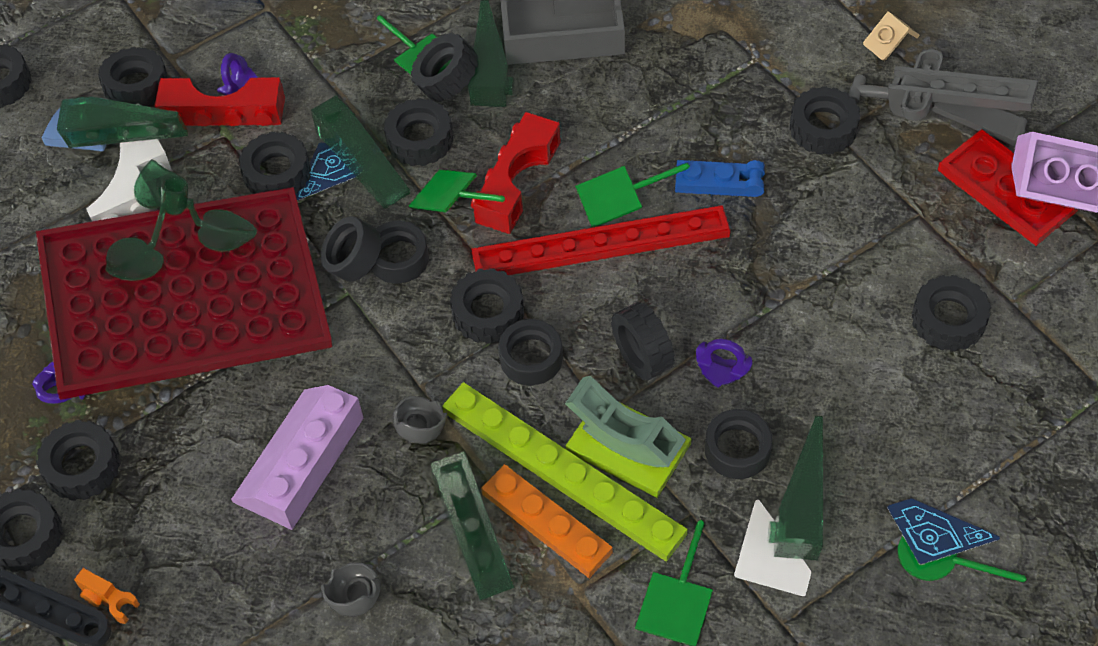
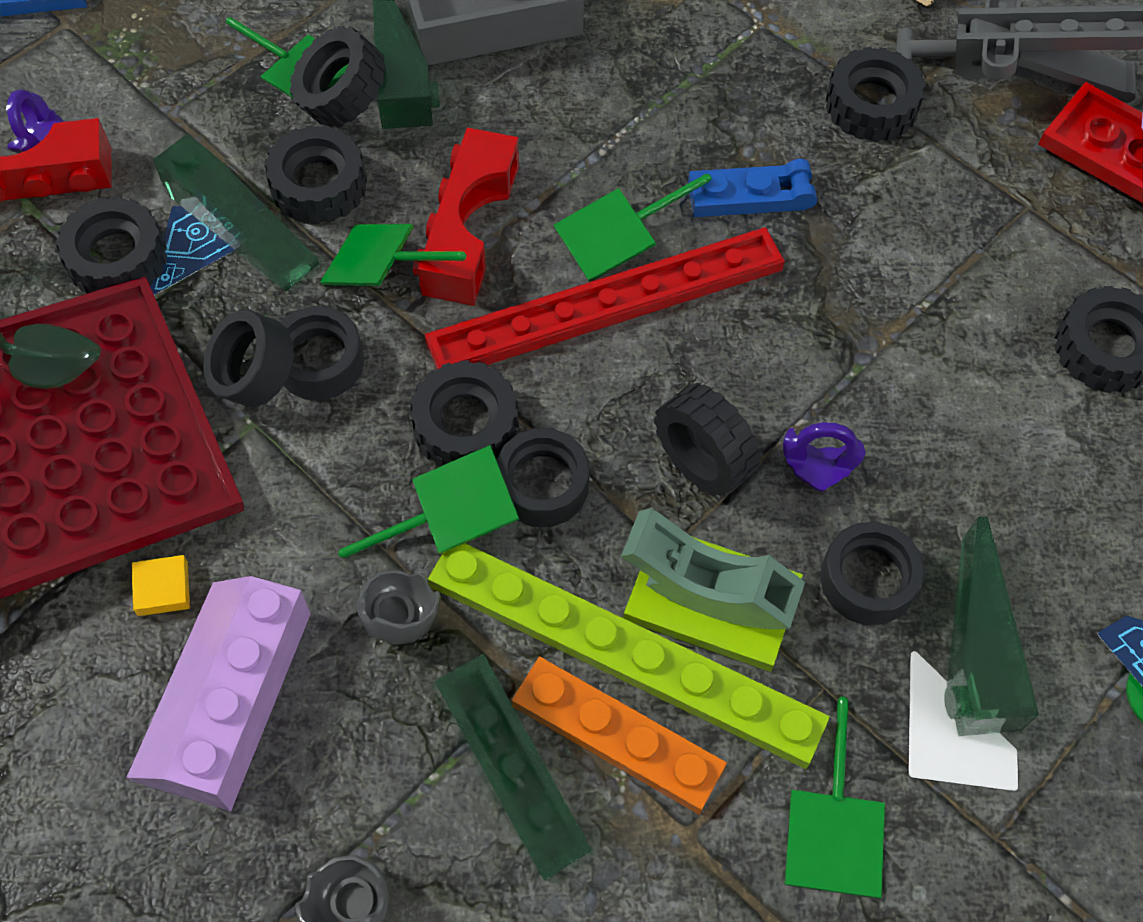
camera: 15 degrees left, 5 degrees up
(271, 386) = (160, 585): none -> yellow tile
(470, 360) = (457, 502): none -> green piece

